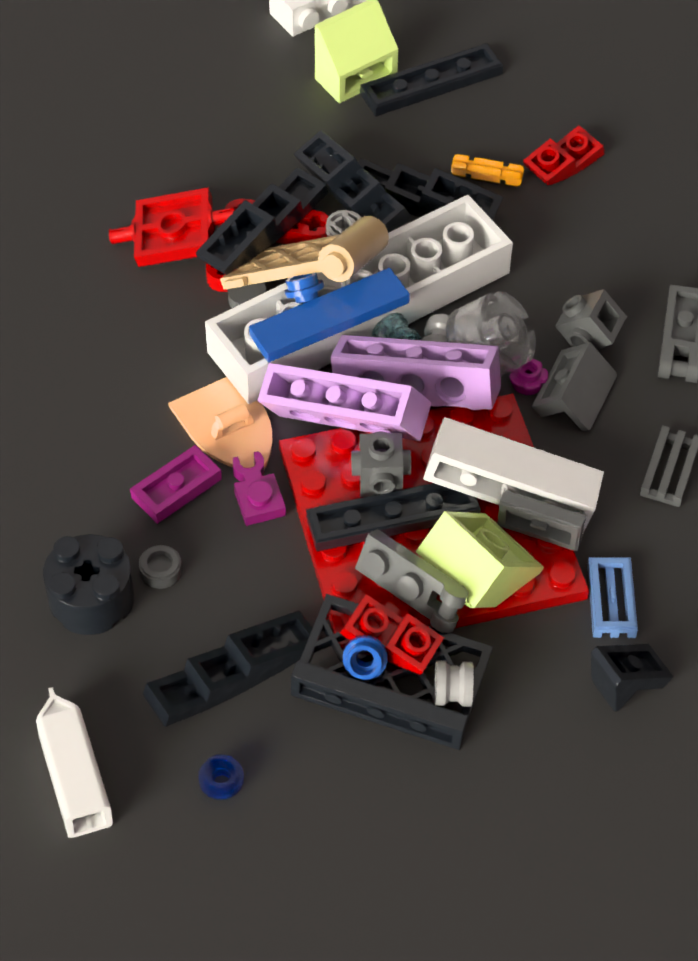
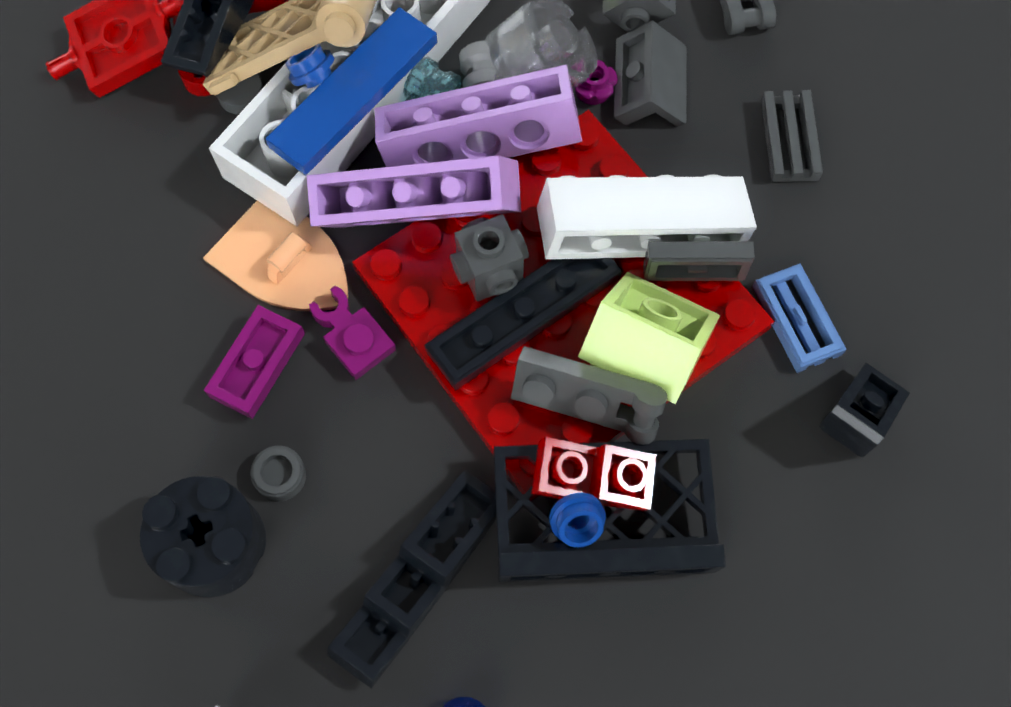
camera: 20 degrees left, 15 degrees up
(454, 683) = (694, 511): light grey wheel -> none

